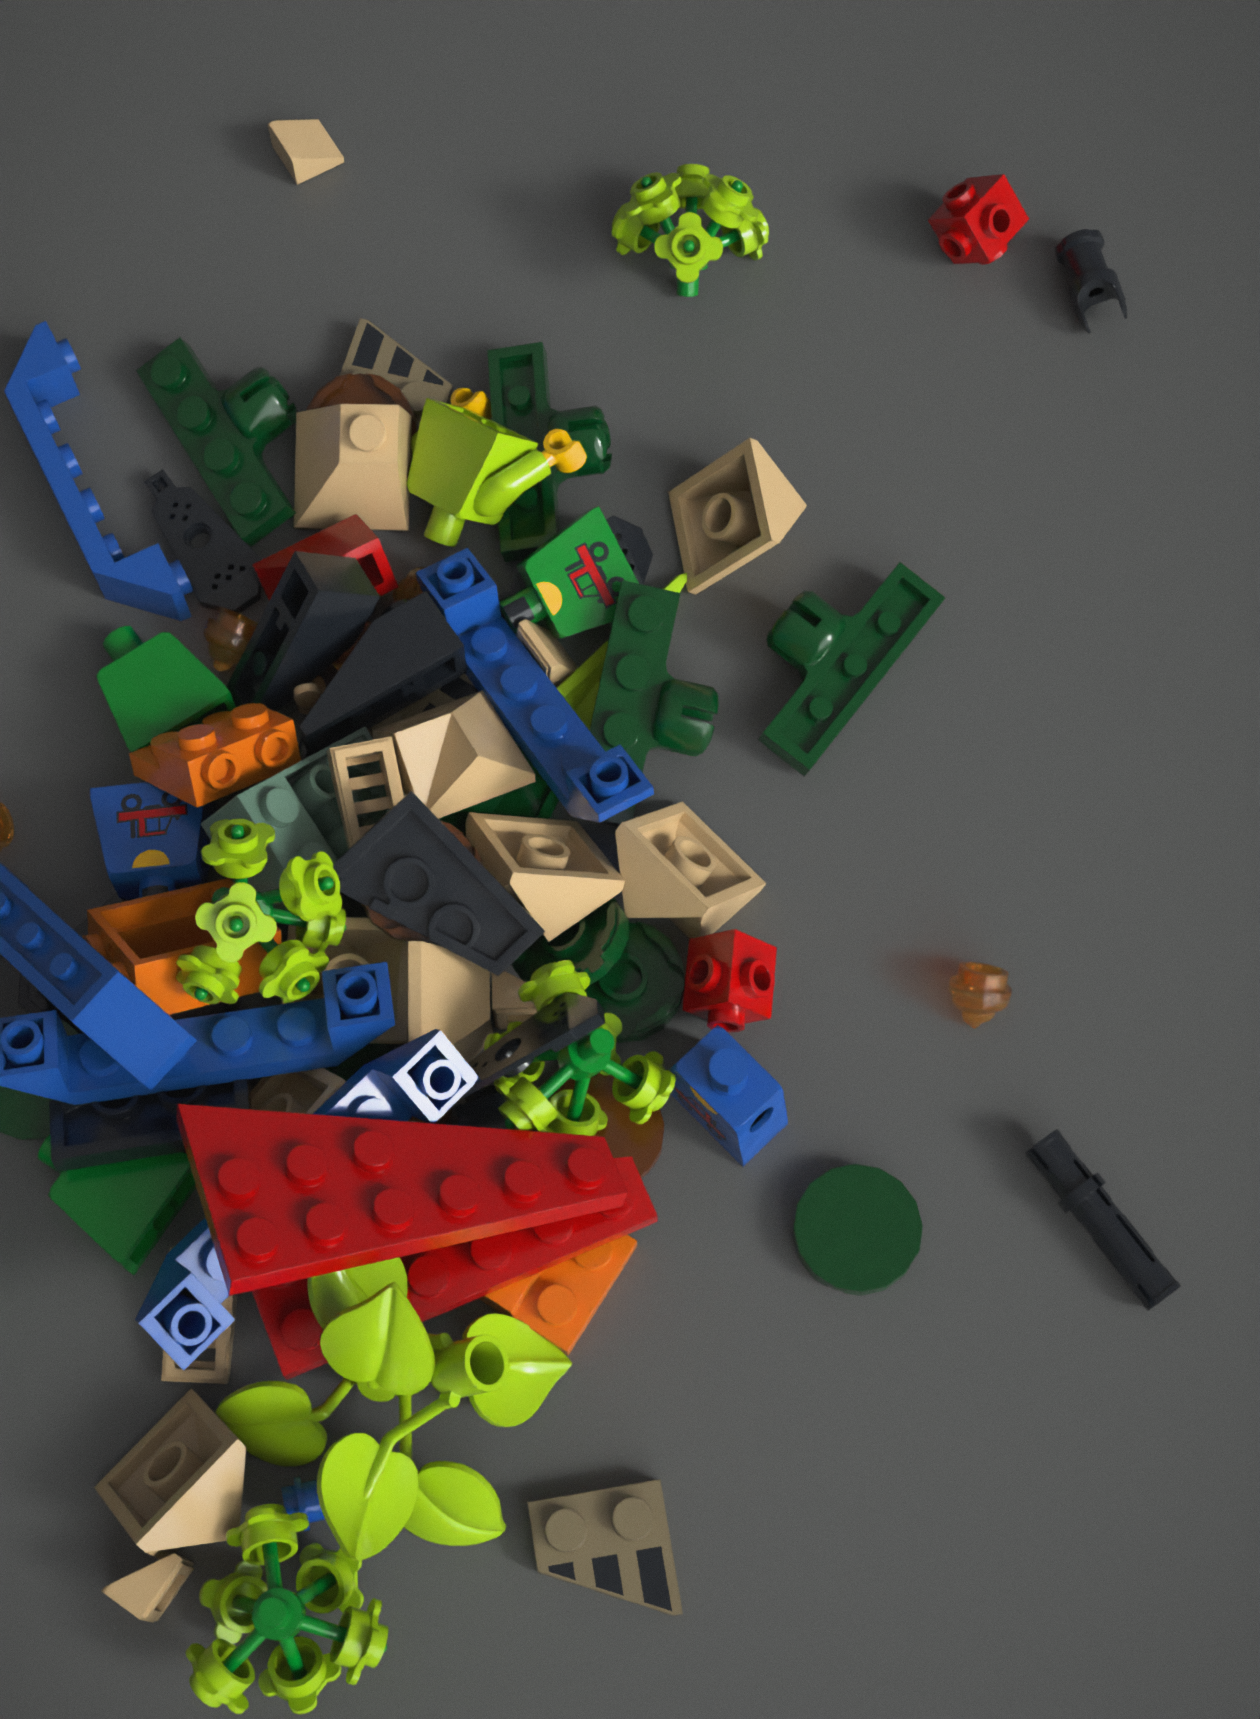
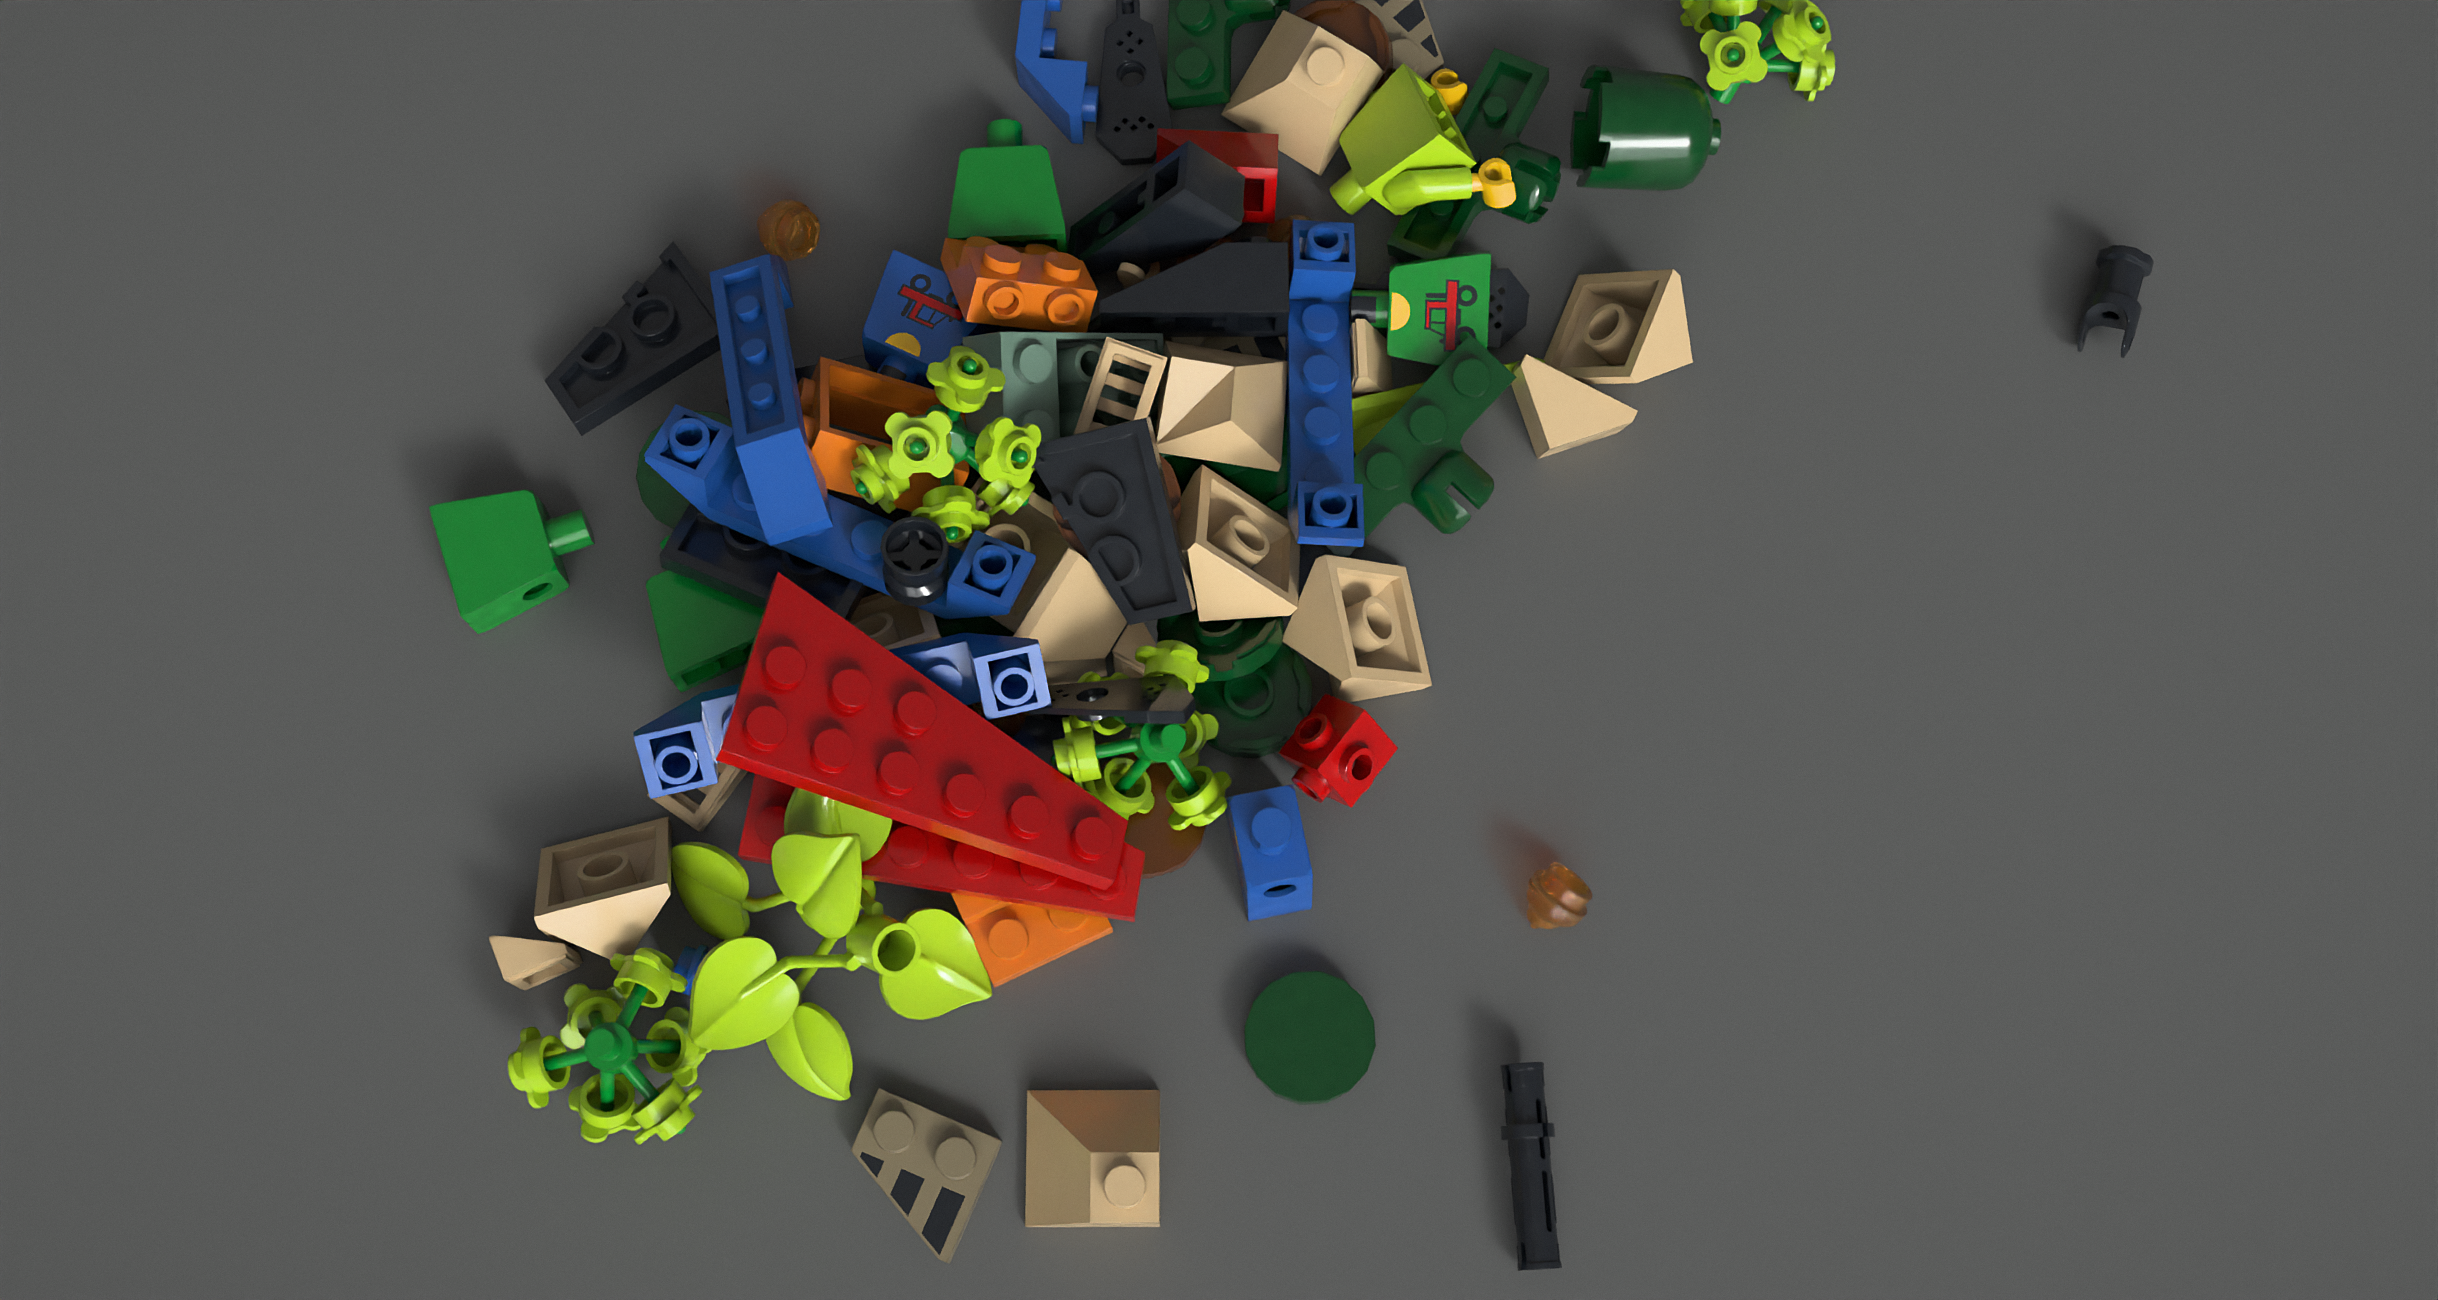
camera: 30 degrees right, 5 degrees up
(227, 637) = (1099, 180): clear orange plate -> none
(290, 1012) = (915, 545): none -> black wheel
(647, 349) = (1641, 130): none -> dark green cylinder
(729, 601) = (1564, 410): none -> tan slope
(748, 1444) = (1093, 1158): none -> tan slope
(840, 660) = (1632, 523): dark green plate -> none
(978, 219) = (2040, 181): red brick -> none

